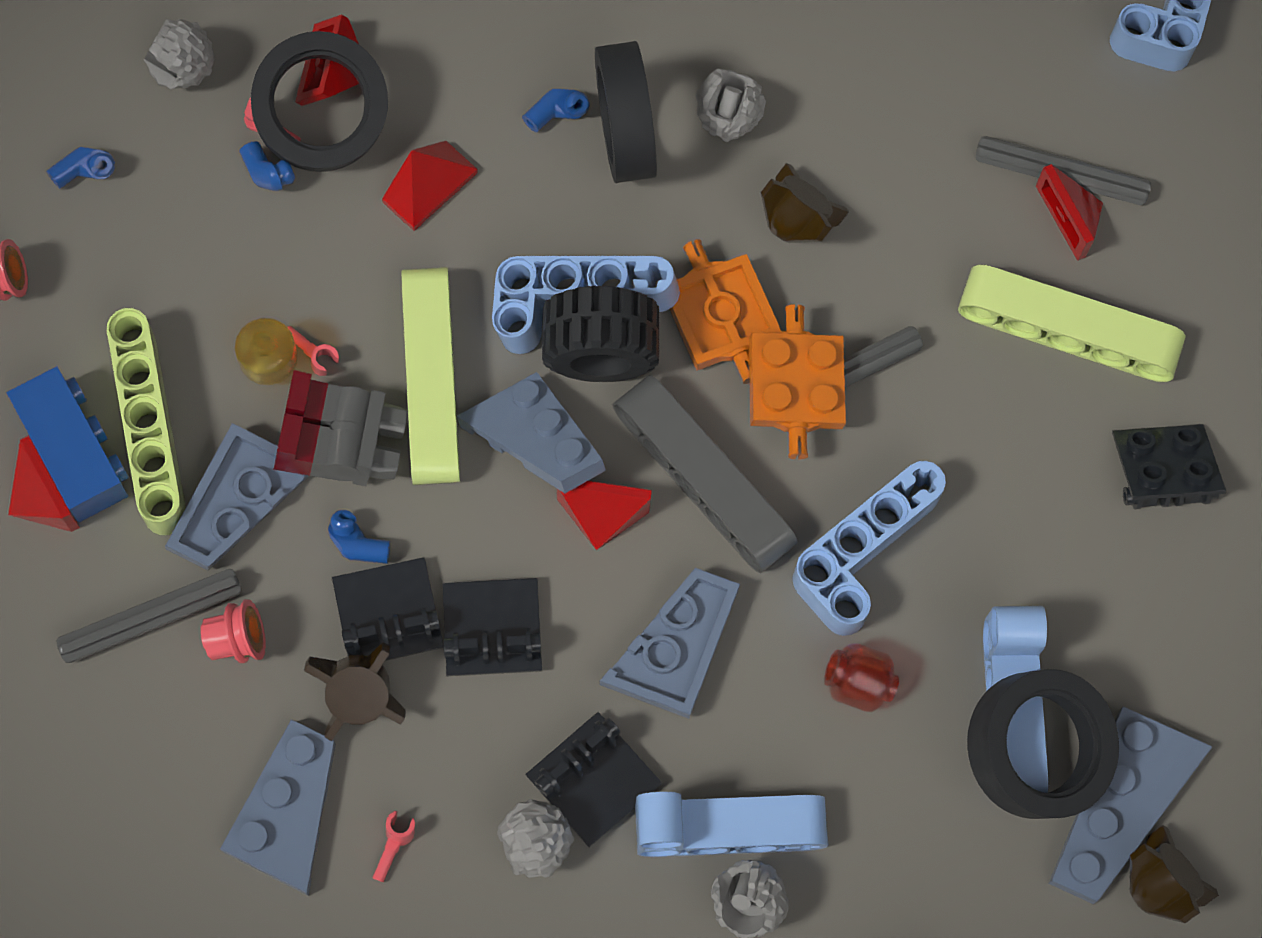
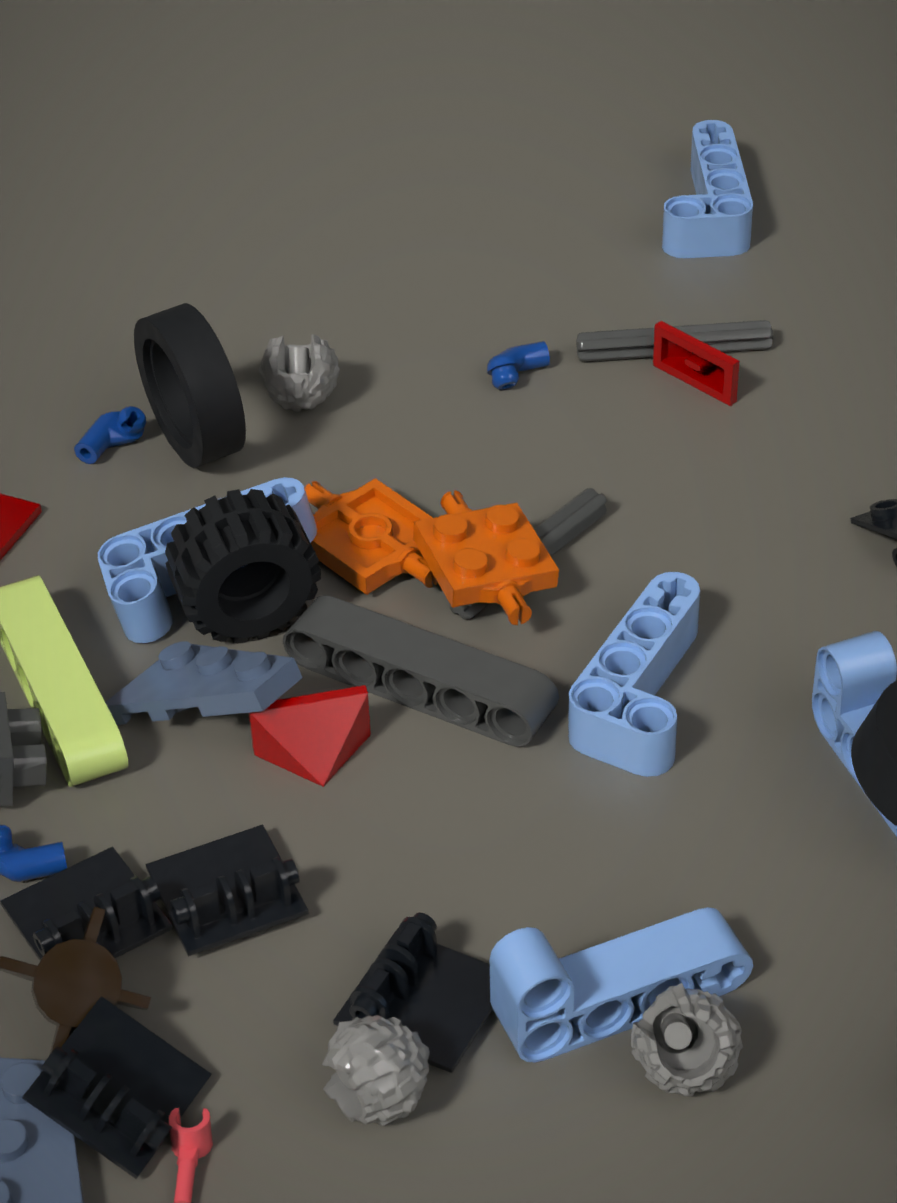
camera: 15 degrees left, 30 degrees down
(362, 779) = (116, 1086): none -> black hinge
(676, 649) = (465, 837): sand blue wing -> none
(797, 209) = (414, 430): dark brown piece -> none
(861, 677) = (701, 790): clear red head -> none
(917, 143) = (507, 364): none -> blue arm
(1072, 323) = (754, 440): yellowish green beam -> none

